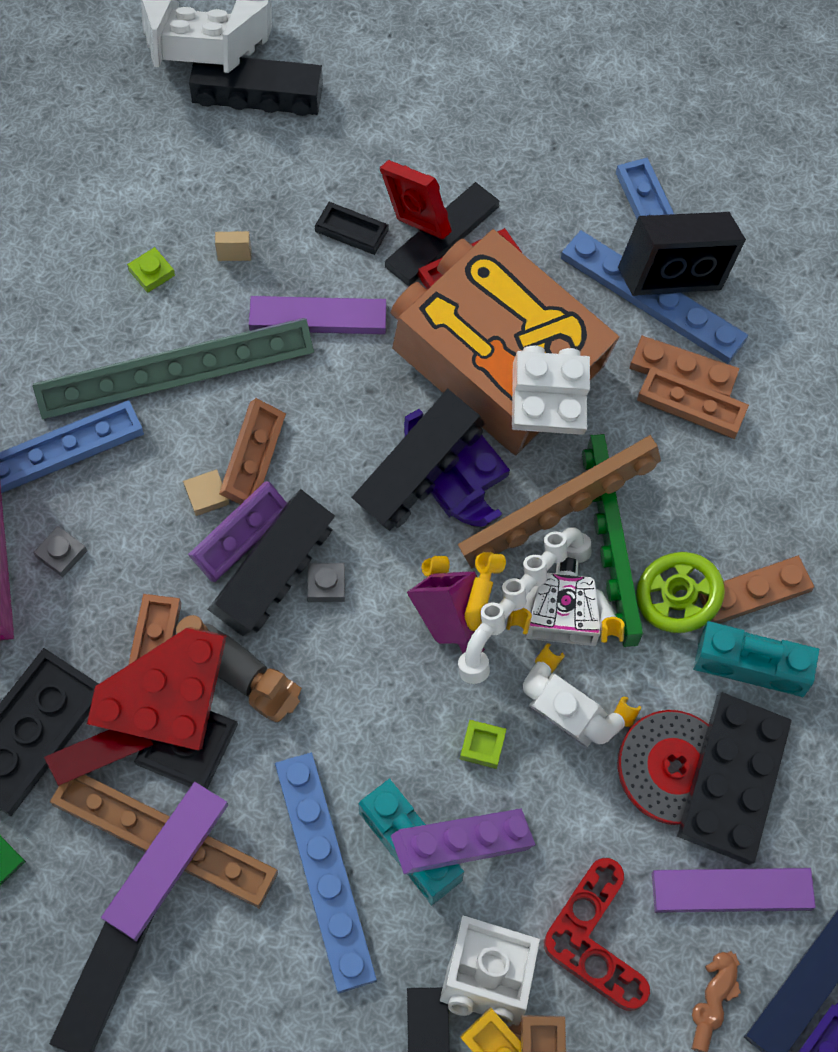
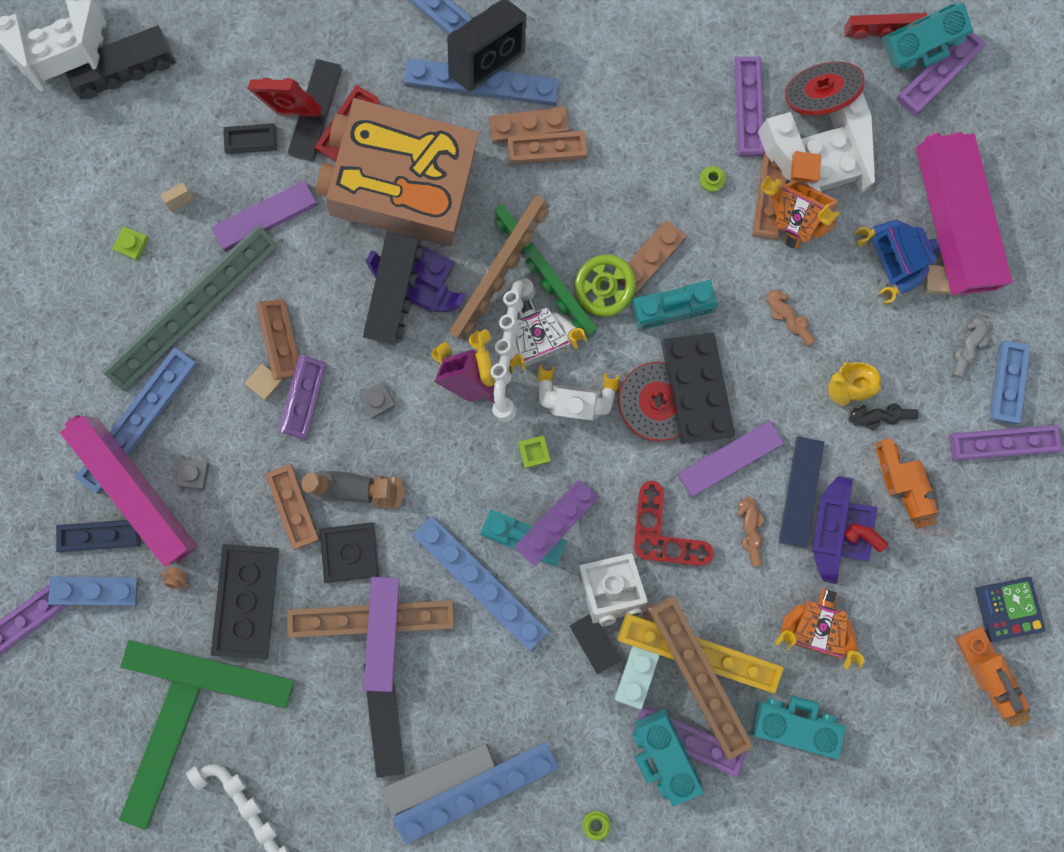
camera: 25 degrees left, 15 degrees up
(93, 754) = (298, 590): dark red sticker -> none
(164, 691) = (318, 531): red plate -> none
(271, 564) = (336, 408): black brick -> none
(550, 391) = (455, 197): white plate -> none

